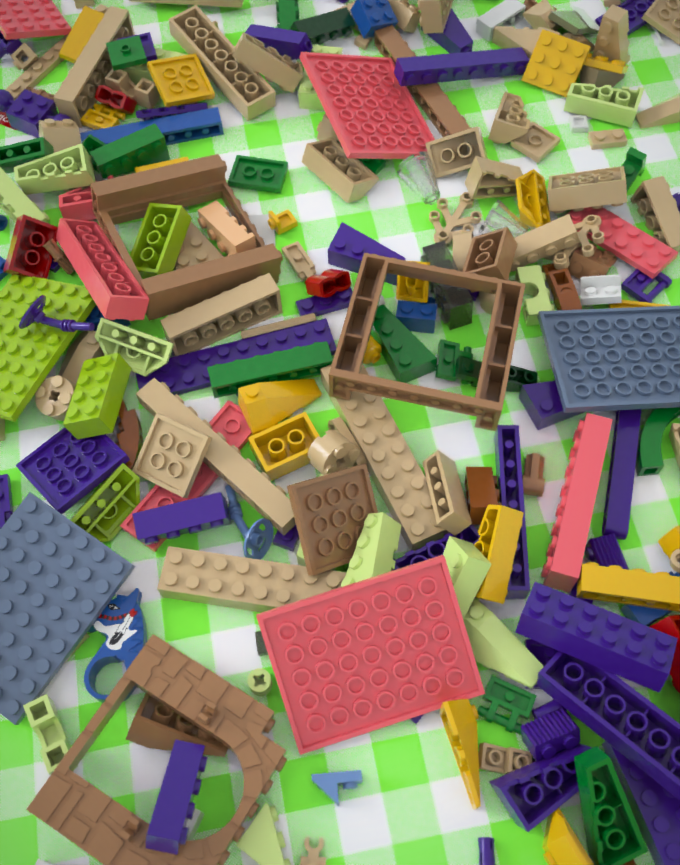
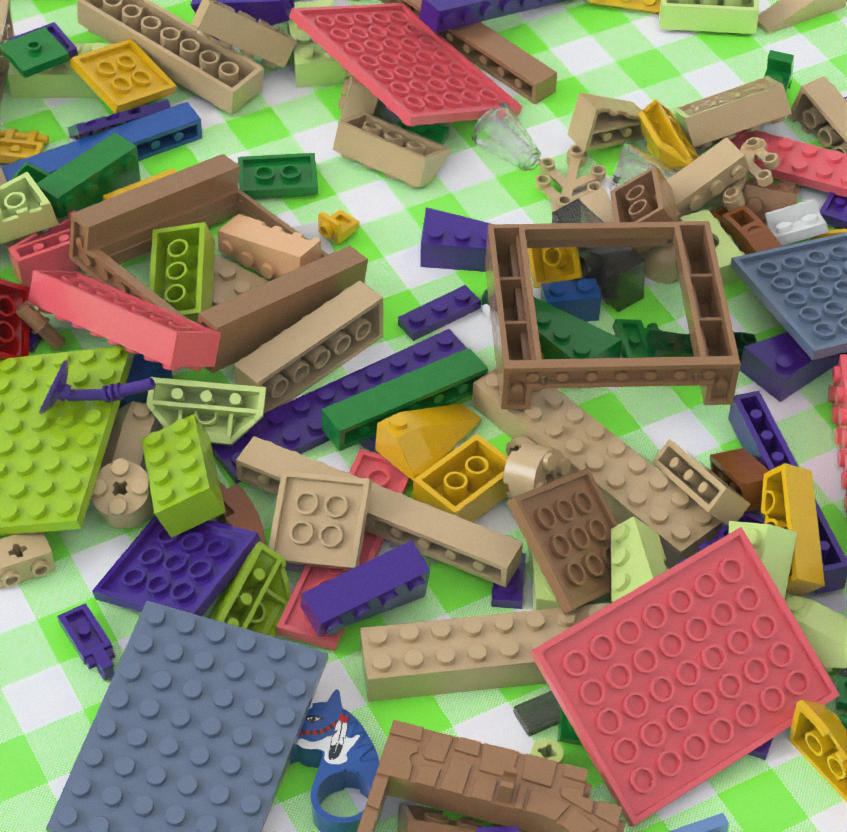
camera: 20 degrees left, 15 degrees down
(115, 99) = (32, 117): red brick -> none
(144, 93) = (30, 101): tan arch -> none
(254, 536) = (470, 596): medium blue dish -> none
(278, 325) = (386, 351): tan axle -> none
(299, 260) = (389, 272): tan hinge -> none
(328, 283) = (437, 283): red brick -> none
(456, 151) = (544, 97): tan slope -> none
(509, 120) = (594, 52): tan wedge -> none
(533, 475) = (799, 445): medium nougat piece -> none
(536, 142) = (638, 71): tan plate -> none
(578, 124) = (685, 41): white tile -> none
(607, 139) = (730, 52): tan plate -> none

